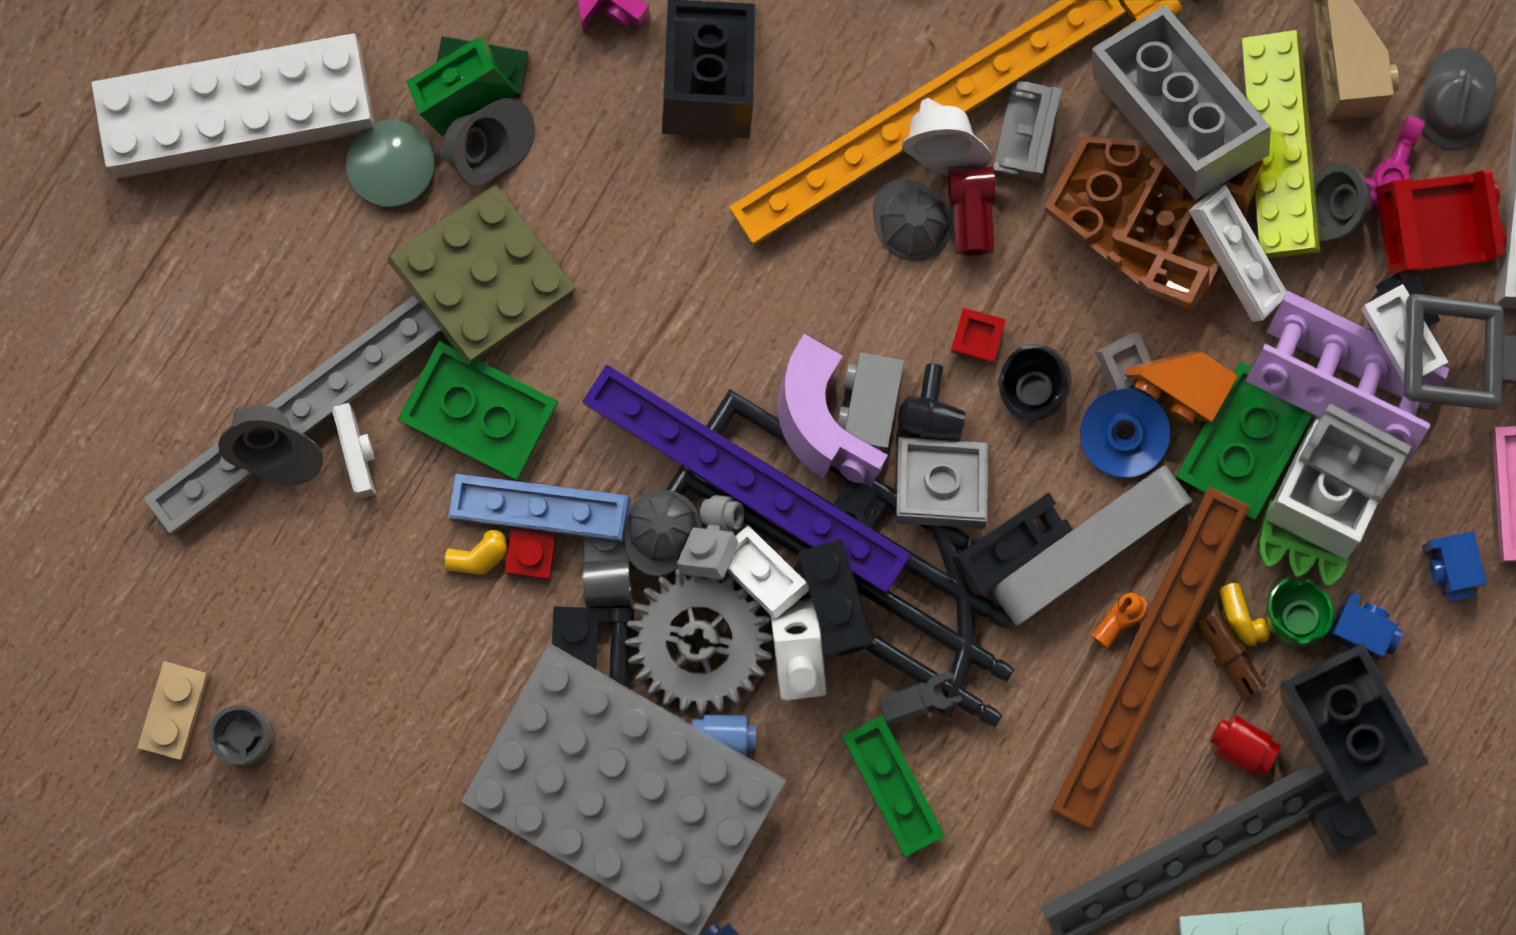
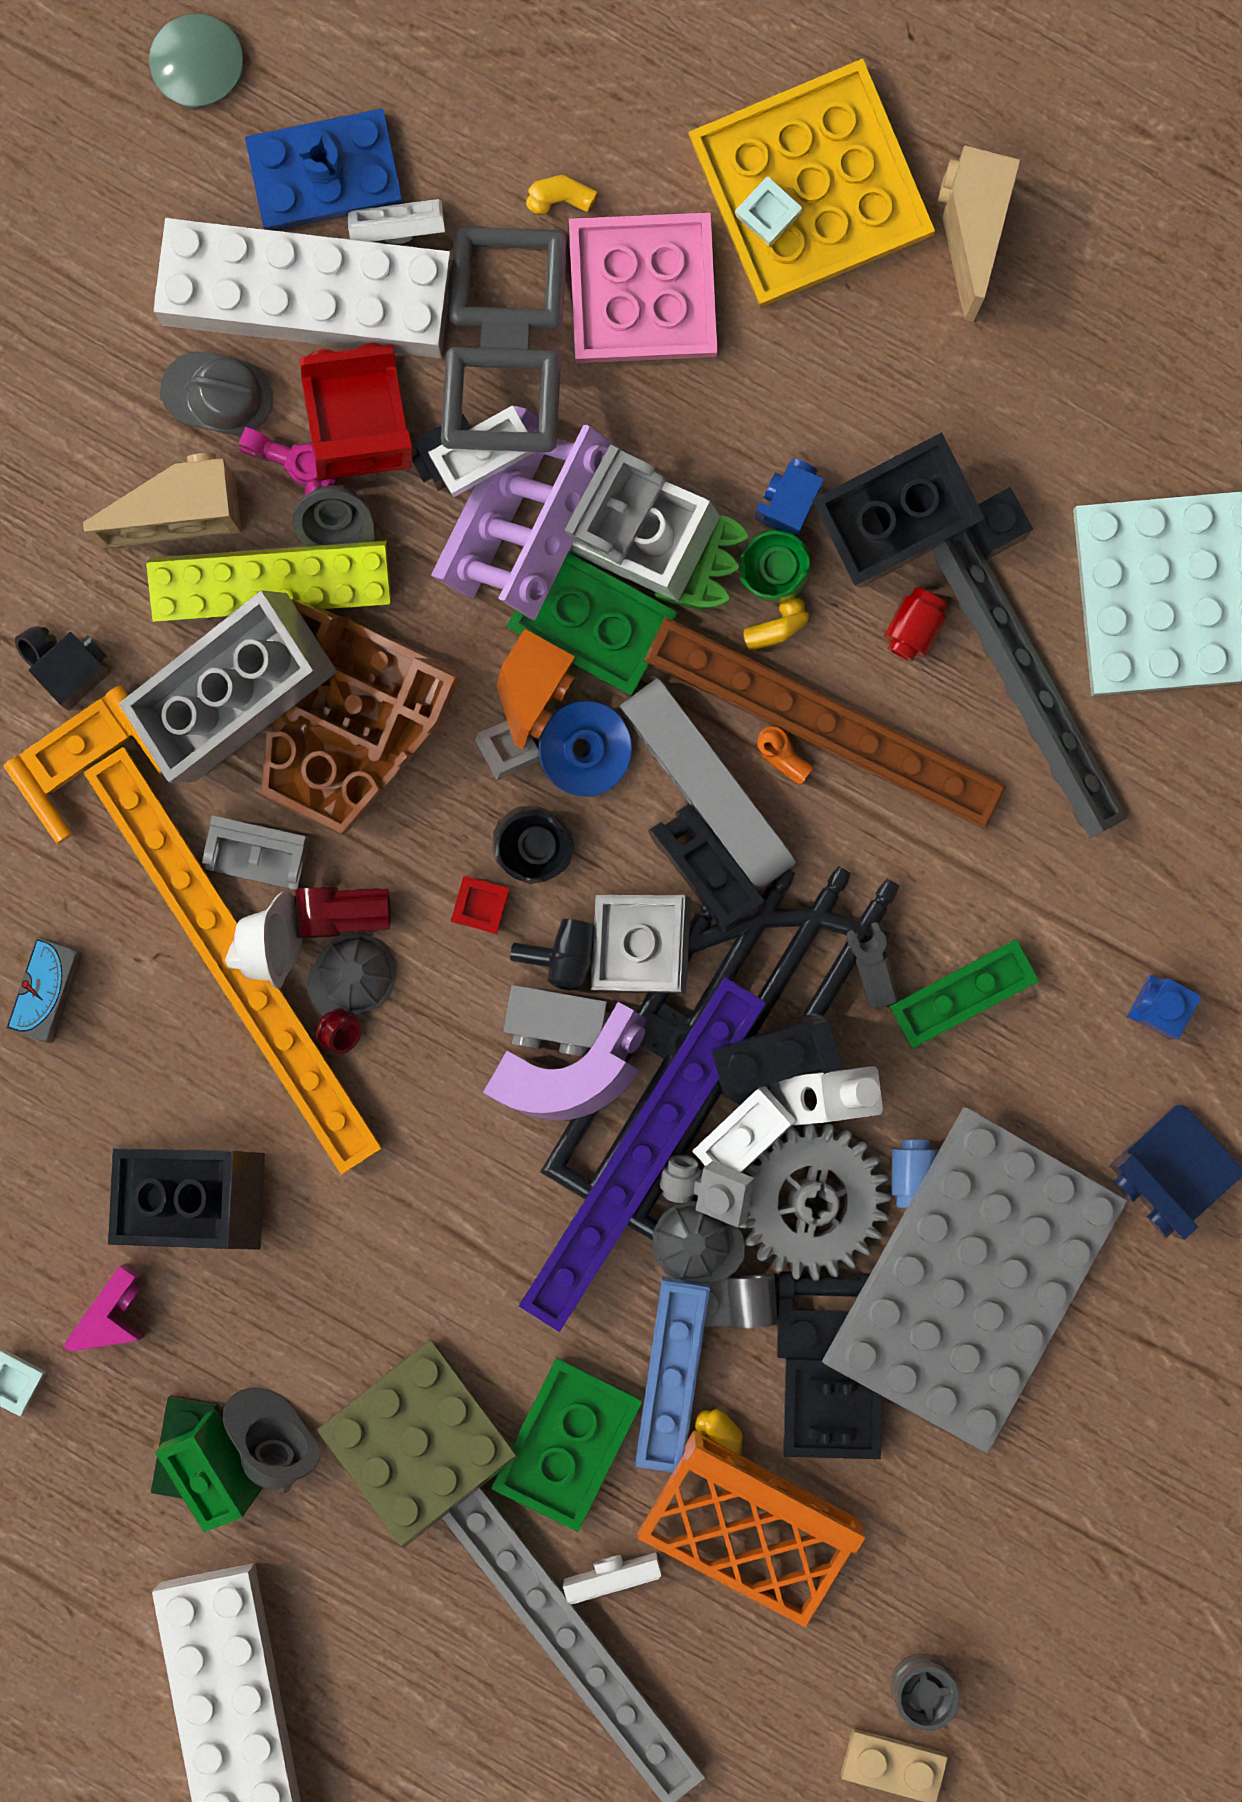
camera: 90 degrees left, 5 degrees up
(269, 447) = (611, 1676): dark grey piece -> none
(390, 163) = (293, 1546): sand green dish -> none
(429, 595) = (762, 1490): none -> orange fence
(500, 653) = (829, 1413): none -> black plate
(530, 554) = (720, 1383): red plate -> none
(861, 205) = (338, 1031): none -> dark red plate
(1230, 654) = (819, 639): reddish brown pin -> none
(1238, 253) = (391, 626): white tile -> none
(1456, 565) = (723, 402): blue brick -> none

